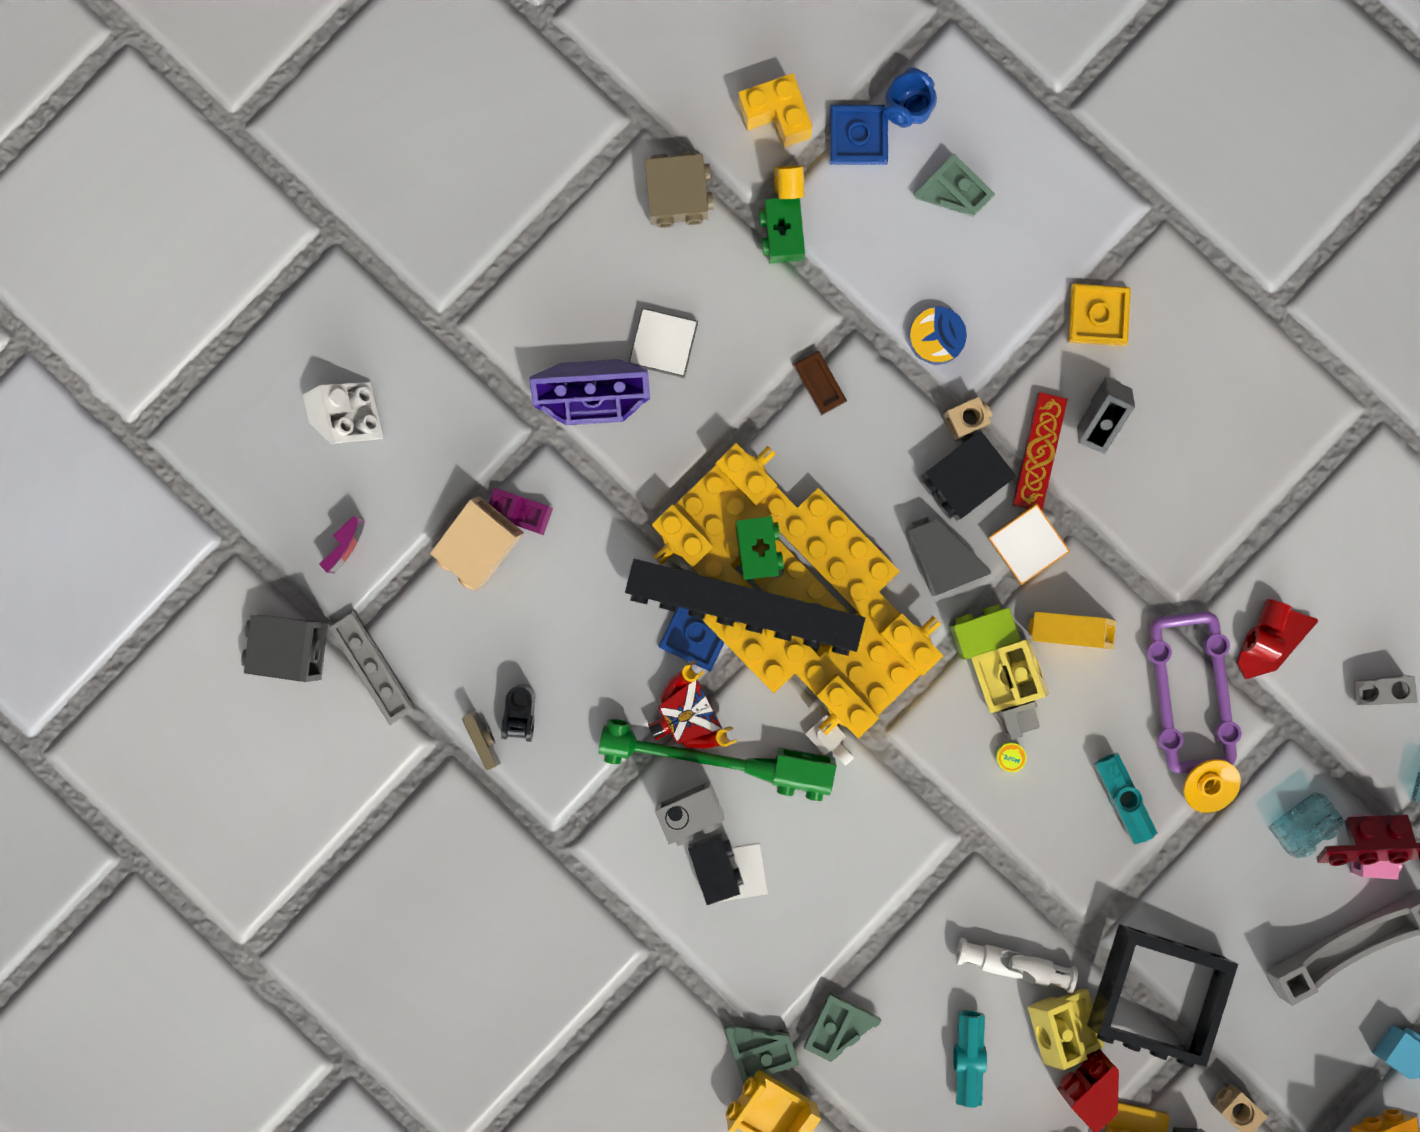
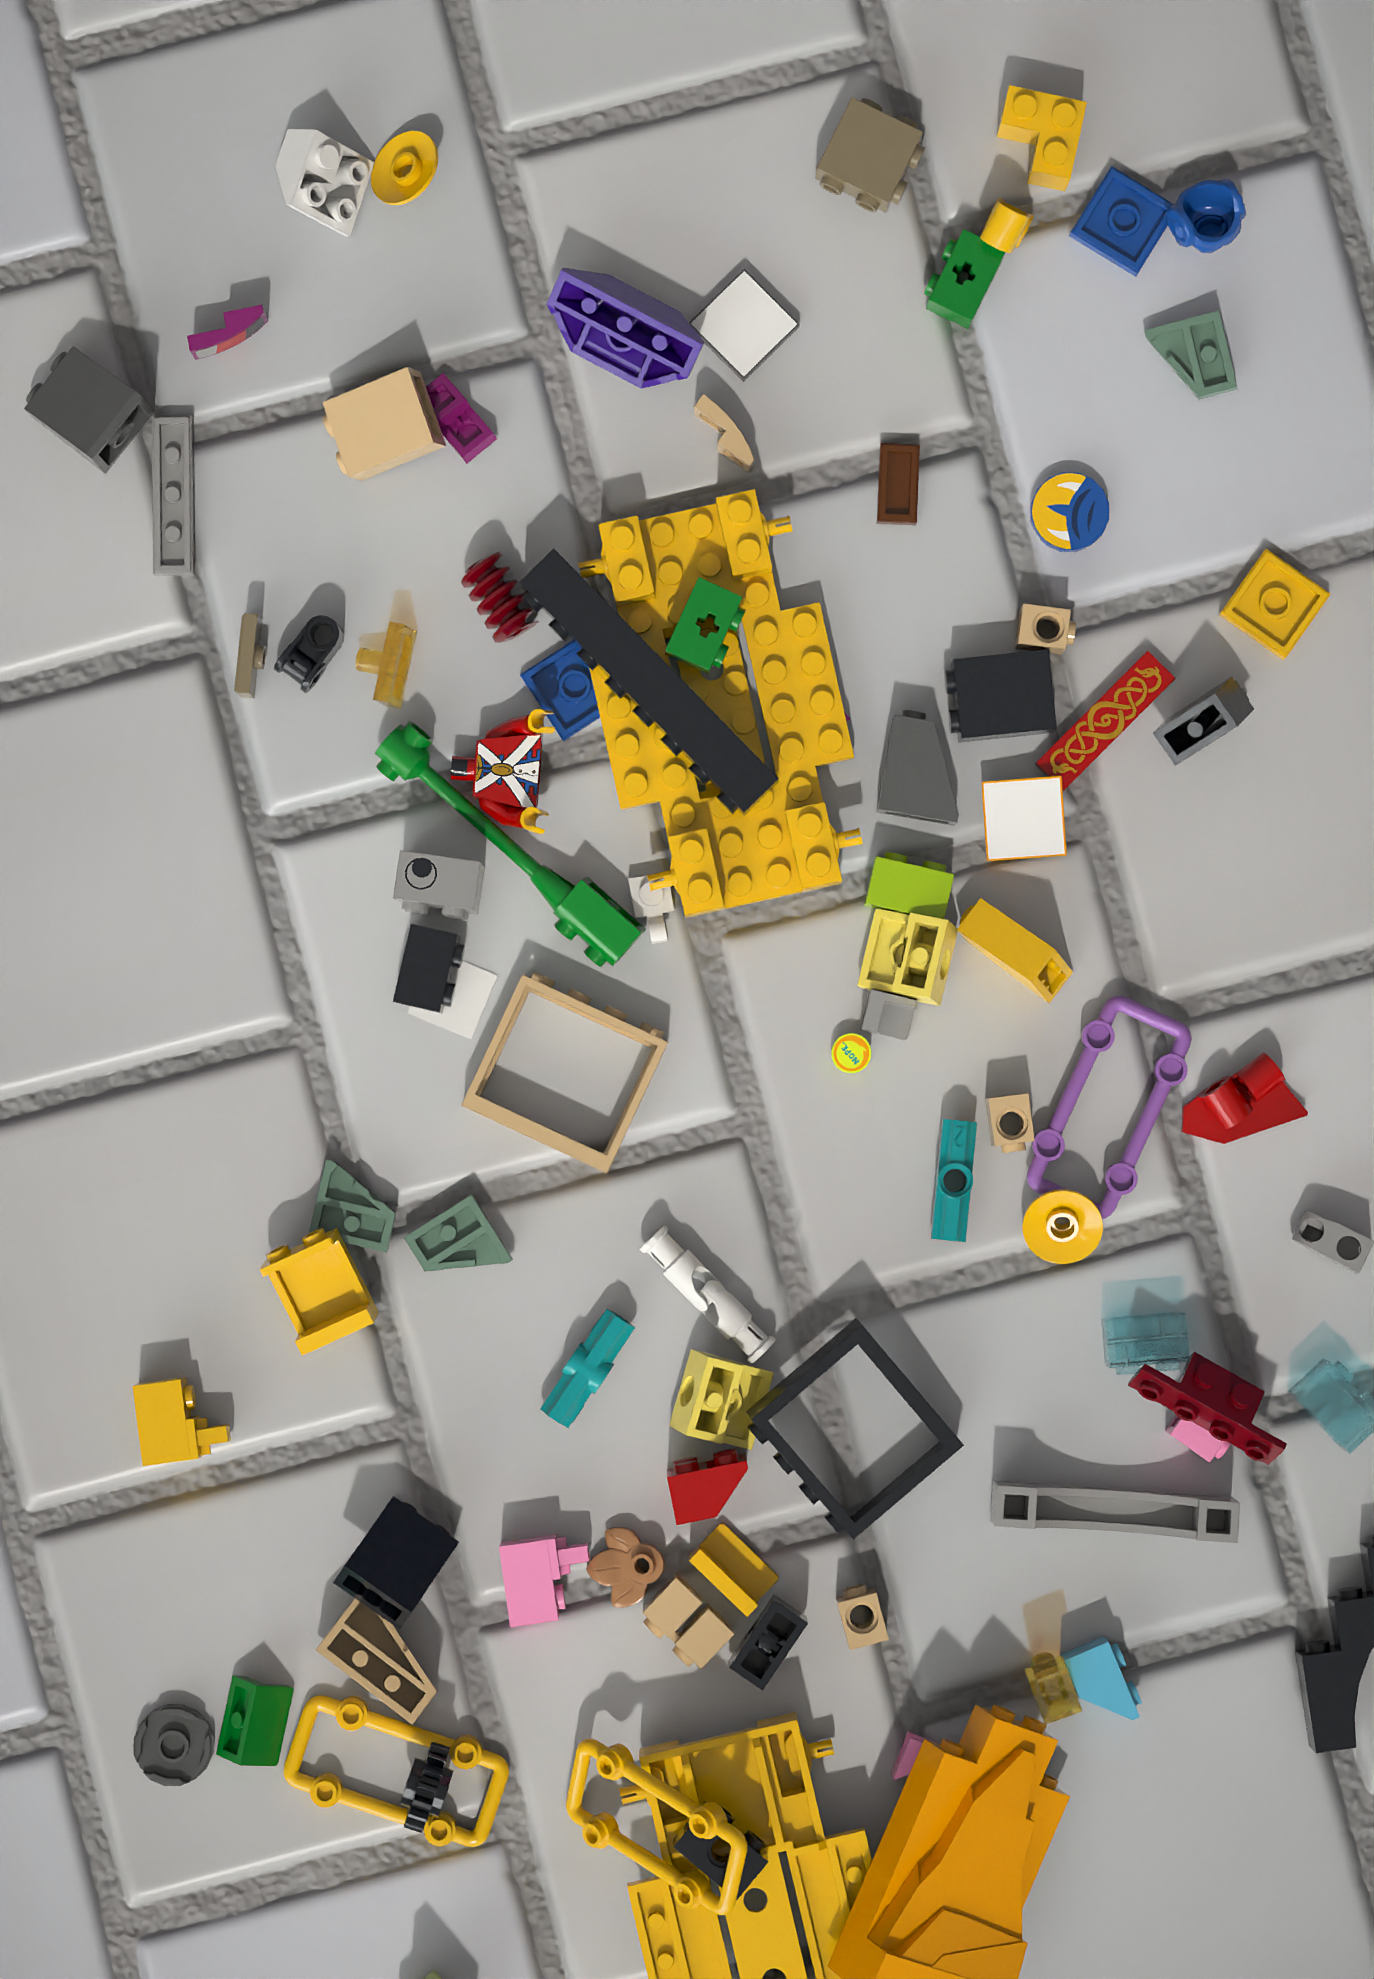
camera: 25 degrees right, 0 degrees up
(391, 374) = (404, 167): none -> yellow dish
(573, 691) = (390, 664): none -> clear yellow tile
(615, 608) = (497, 598): none -> dark red piece
(702, 421) = (732, 442): none -> tan slope
(853, 927) = (579, 1004): none -> tan window
(1128, 730) = (1019, 1105): none -> tan brick
(1384, 1080) = (1052, 1687): none -> clear yellow tile

